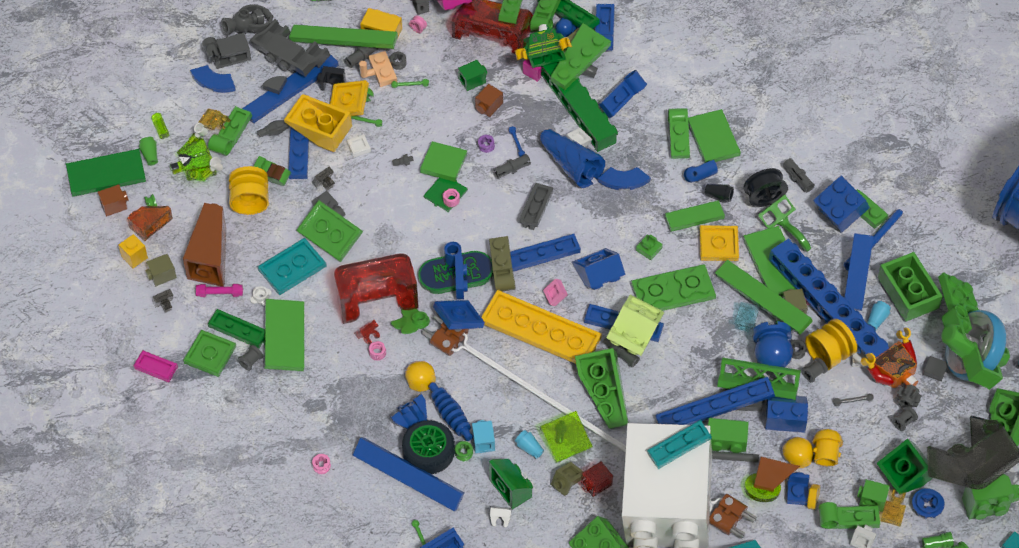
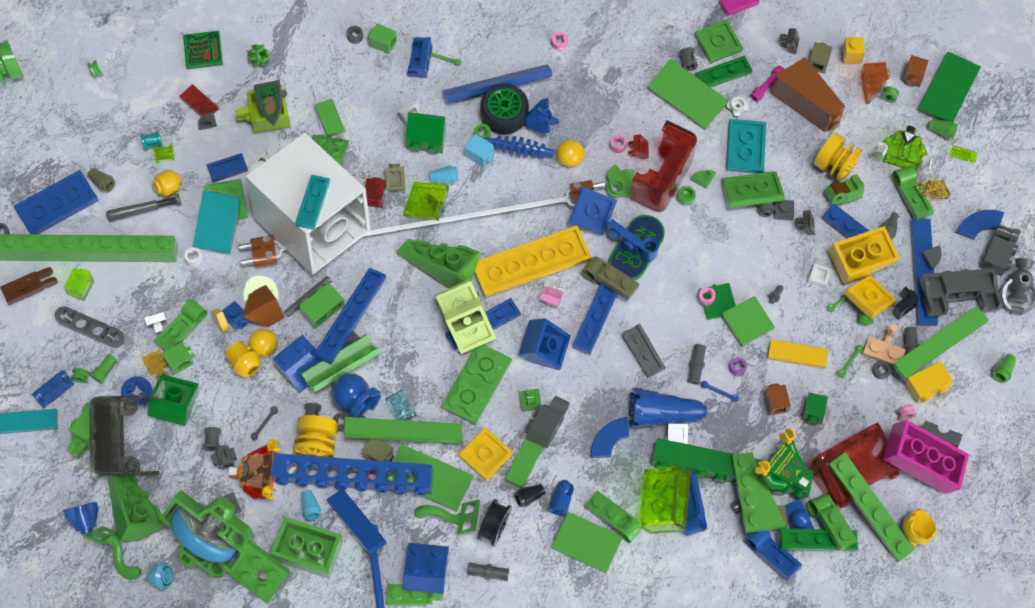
camera: 130 degrees right, 10 degrees up
(438, 116) = (798, 354): none -> yellow tile
(638, 104) = (664, 500): none -> clear neon green brick
(656, 216) = (547, 421): none -> dark grey hinge

